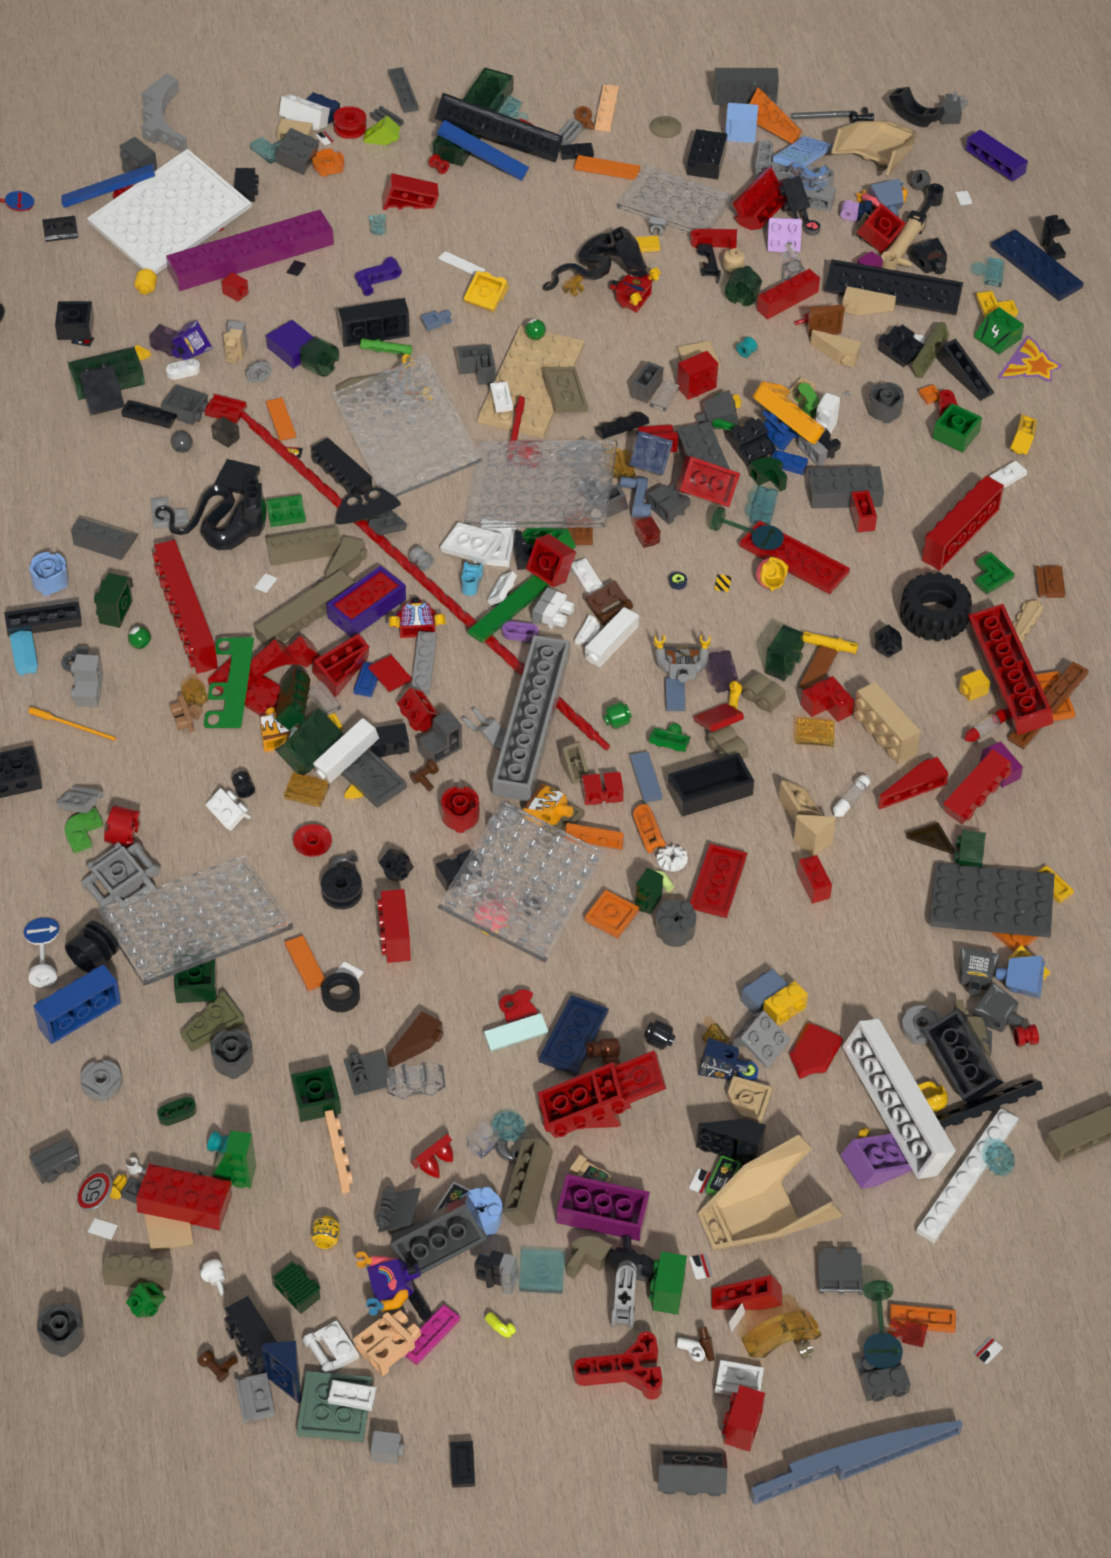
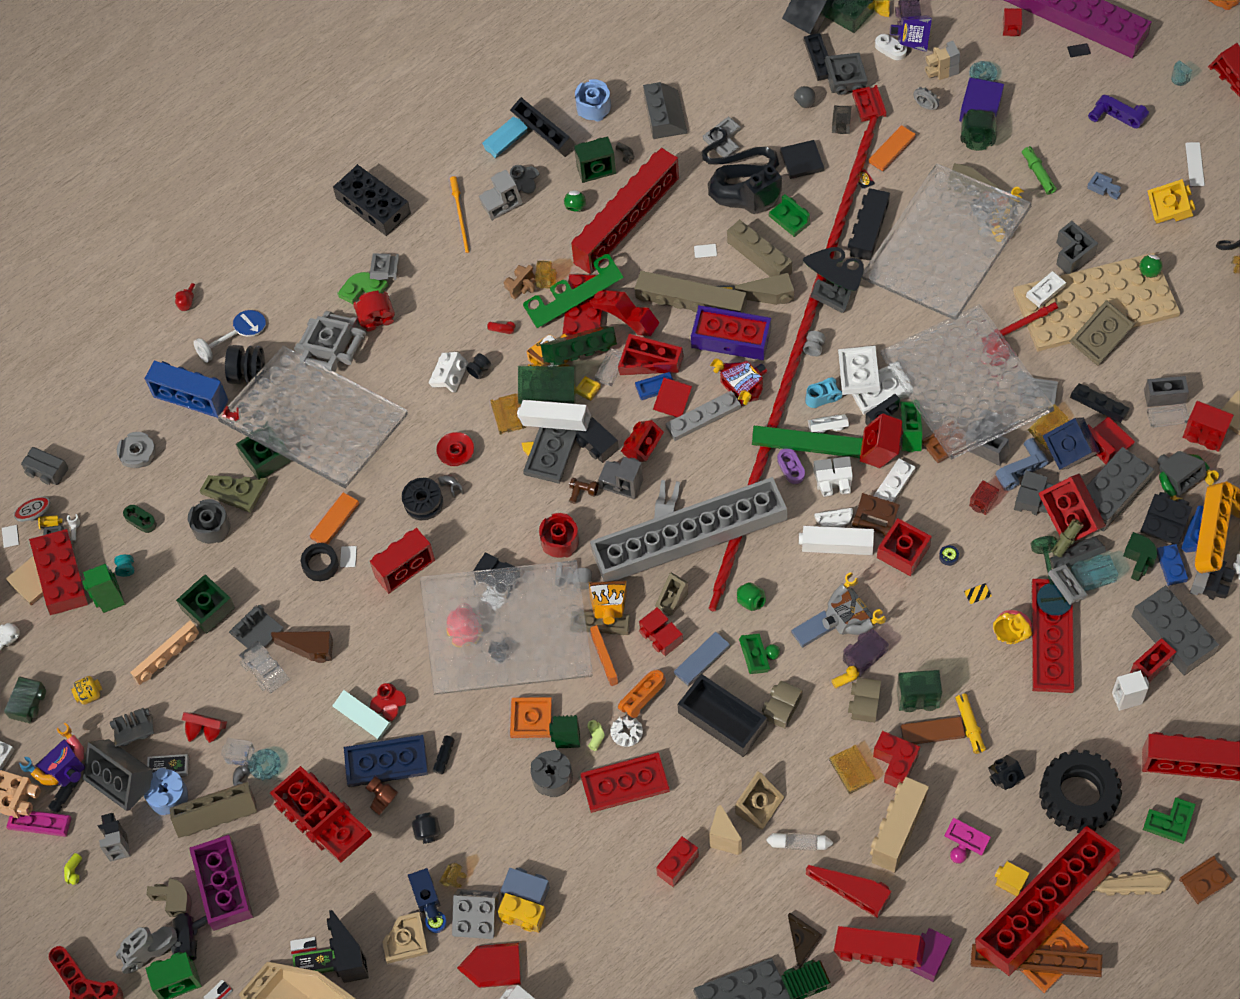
camera: 65 degrees right, 10 degrees up
(151, 968) = (230, 415): none -> red piece
(221, 748) = (507, 328): none -> red arm
(264, 324) = (980, 67): none -> clear light blue gear
(374, 321) = (1053, 142): black brick -> none
(396, 864) = (468, 524): black brick -> none
(542, 1271) = (142, 870): clear light blue tile -> none
(586, 1170) = (252, 854): leg -> none
(598, 992) = (443, 754): none -> black axle
(653, 598) = (904, 547): none -> red brick
(718, 717) = (806, 678): red tile -> none
(728, 497) = (1067, 537): none -> olive pin
(739, 505) = (1078, 552): none -> dark grey hinge
(764, 522) = (1065, 585): none -> light grey tile
(877, 535) = (1130, 690): none -> white brick
(923, 694) = (966, 838): none -> dark pink plate
(986, 725) = (966, 914): piece -> none

